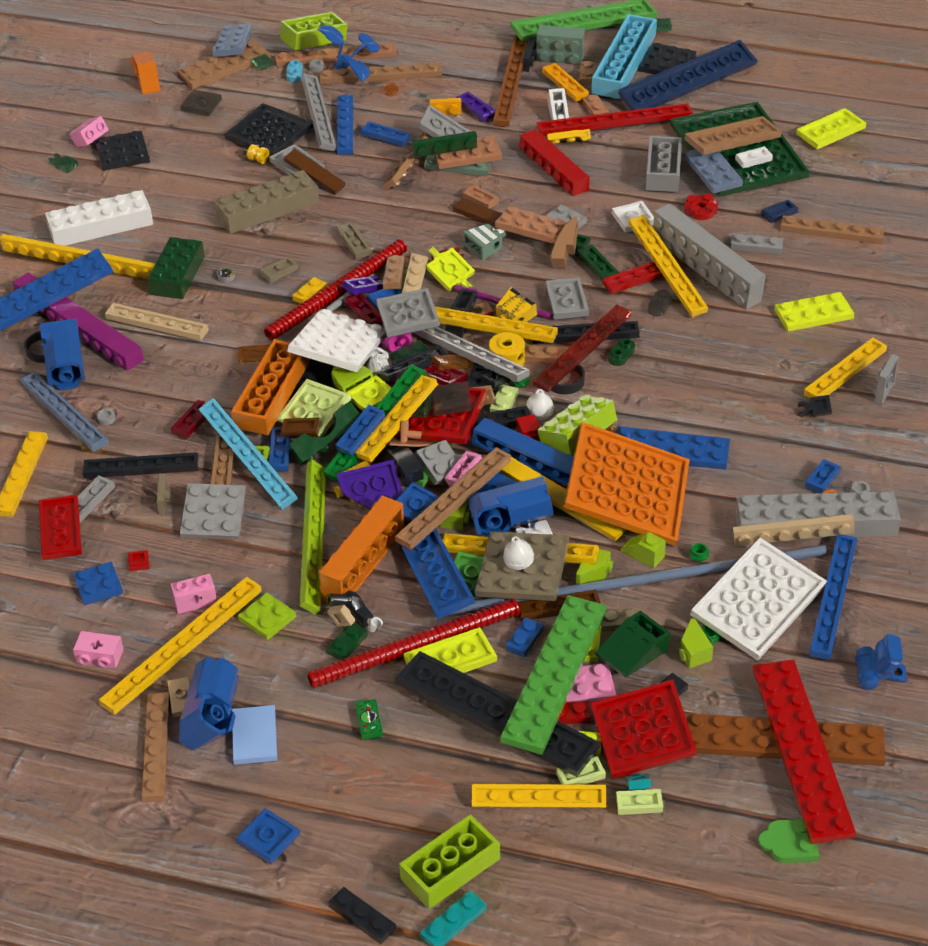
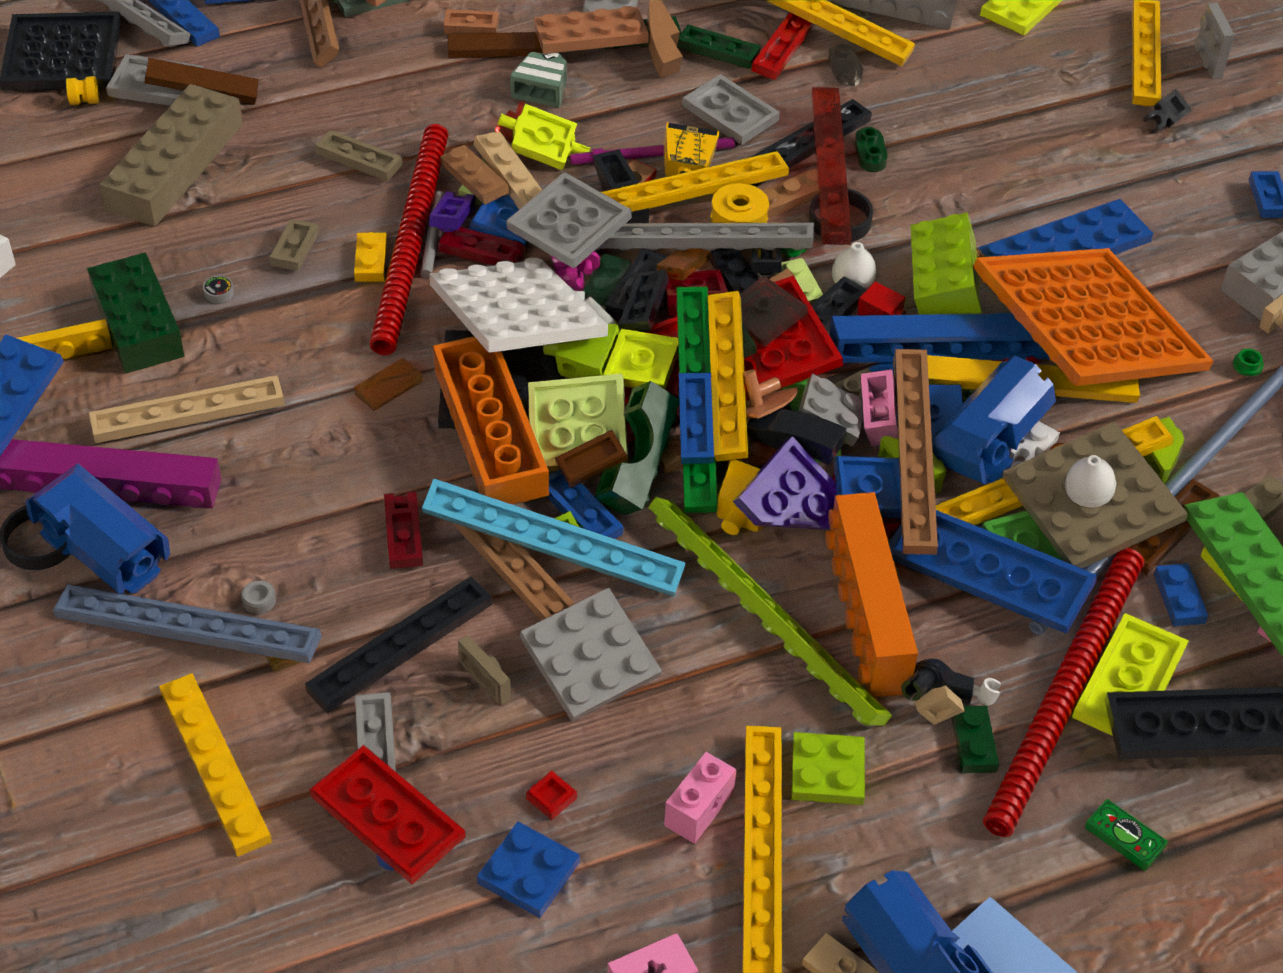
camera: 40 degrees left, 5 degrees up
(646, 549) = (1188, 391): lime slope -> none

